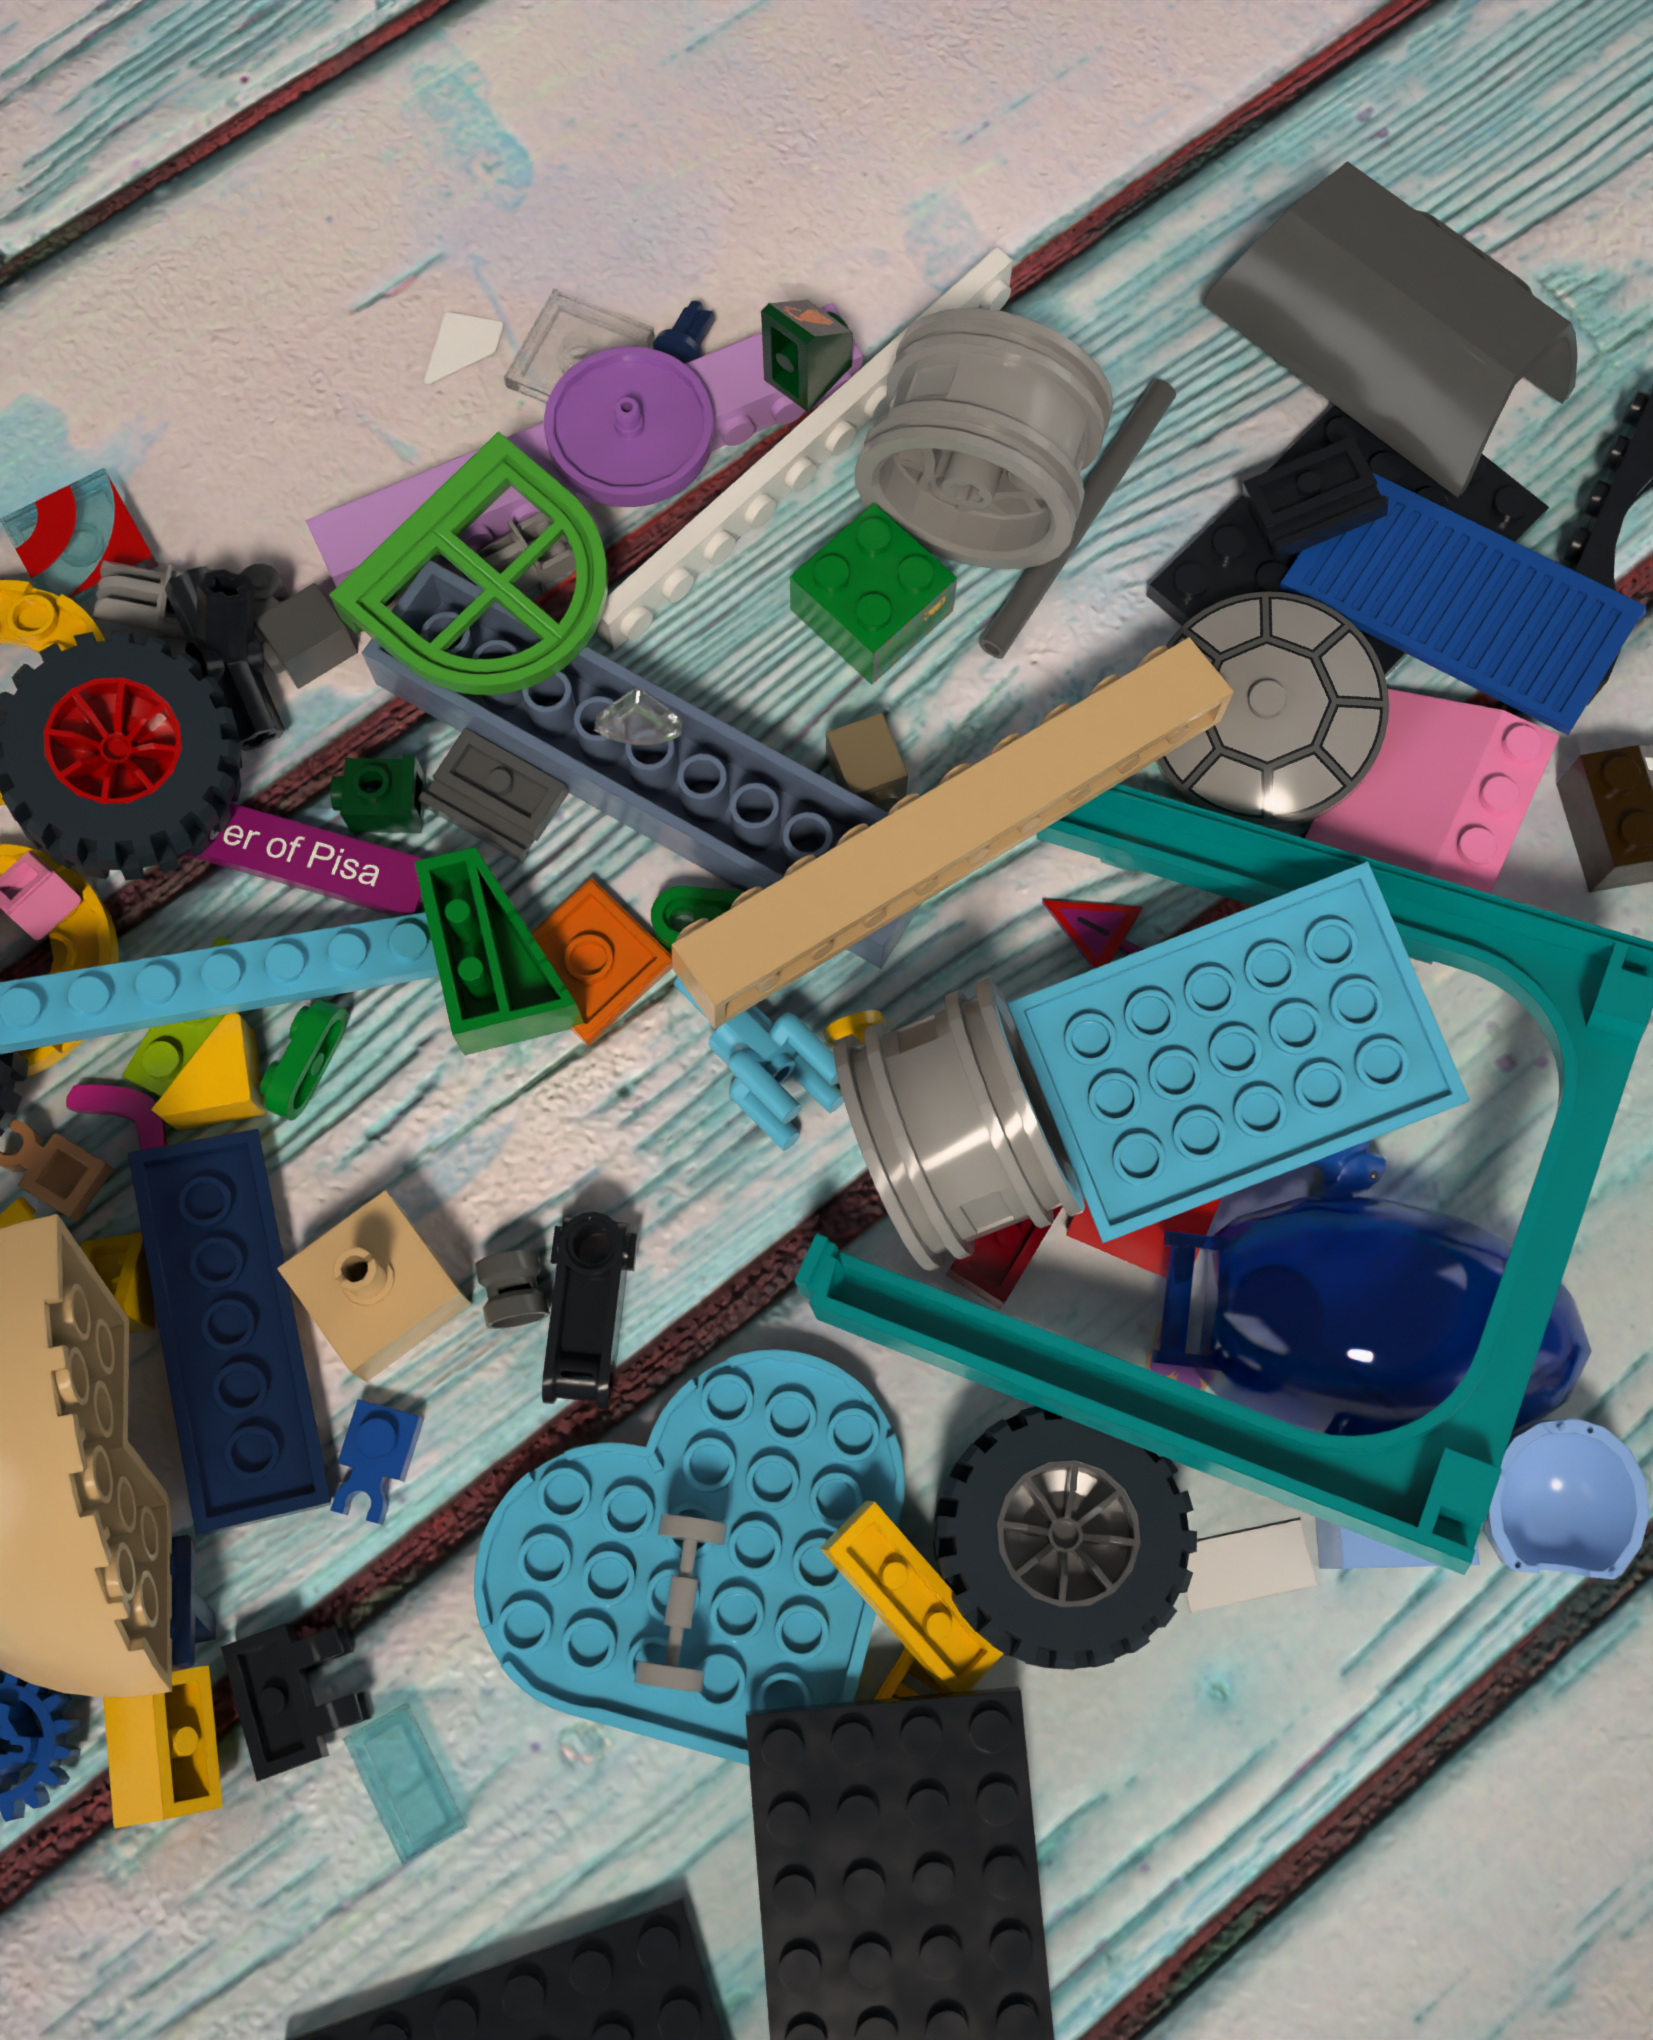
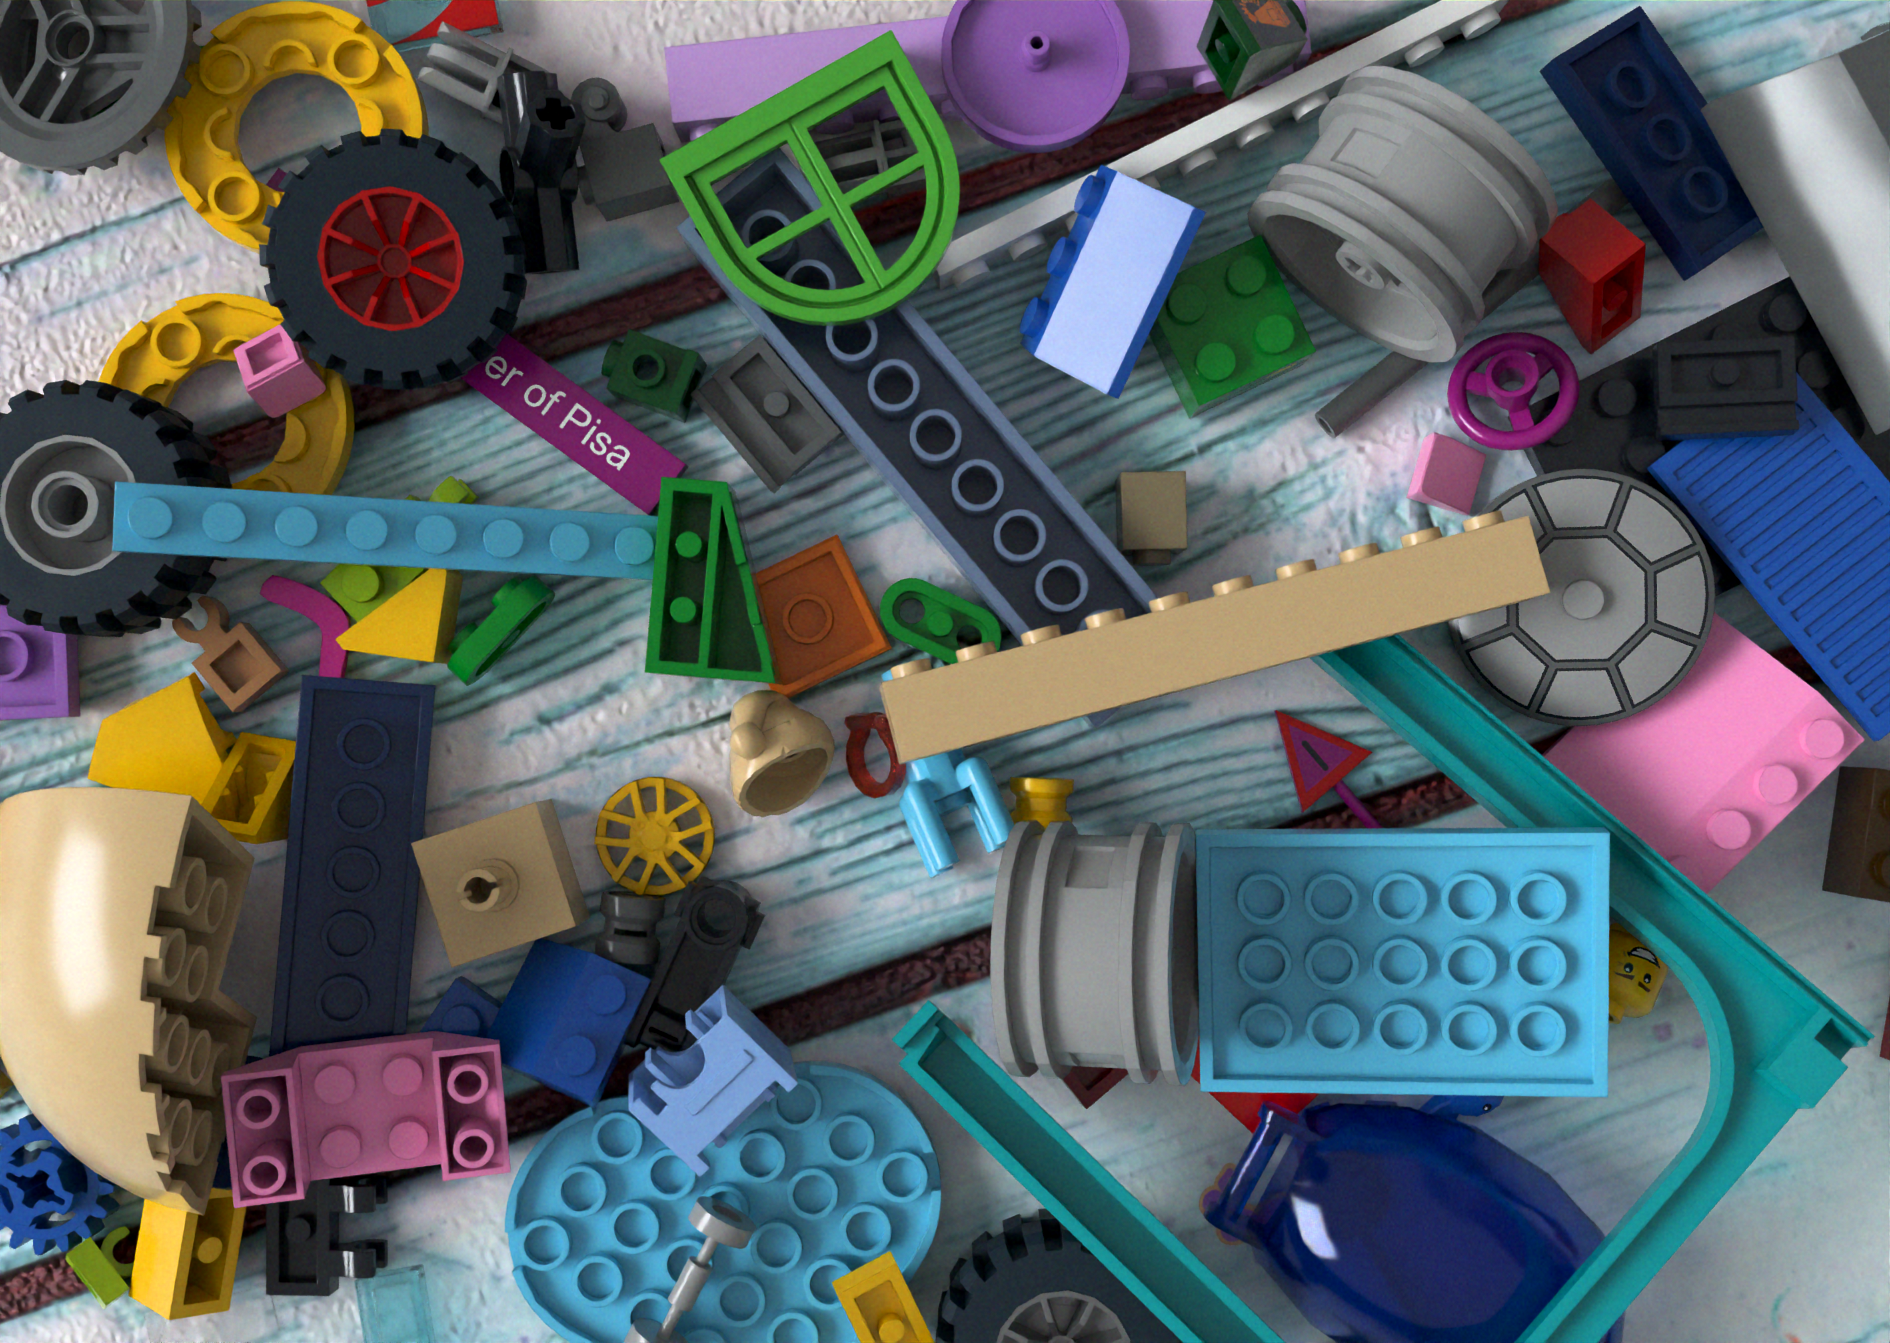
camera: 20 degrees right, 15 degrees up
(74, 1820) = (99, 1268): none -> lime tile
(309, 1543) = (364, 1112): none -> bright pink slope
(479, 1394) = (568, 1019): none -> blue slope
(509, 1199) = (654, 836): none -> yellow wheel
(619, 1093) = (776, 753): none -> tan piece
(638, 720) = (932, 408): clear tile -> none
(645, 1385) = (713, 1084): none -> light blue piece
(671, 1042) = (860, 728): none -> clear red piece
(755, 573) = (1109, 279): none -> slope
(1109, 649) = (1446, 474): none -> bright pink slope
(1134, 554) = (1510, 365): none -> magenta piece
(1168, 450) = (1593, 273): none -> red slope
(1176, 338) = (1654, 140): none -> dark blue plate
(1456, 1008) = (1633, 976): none -> yellow head

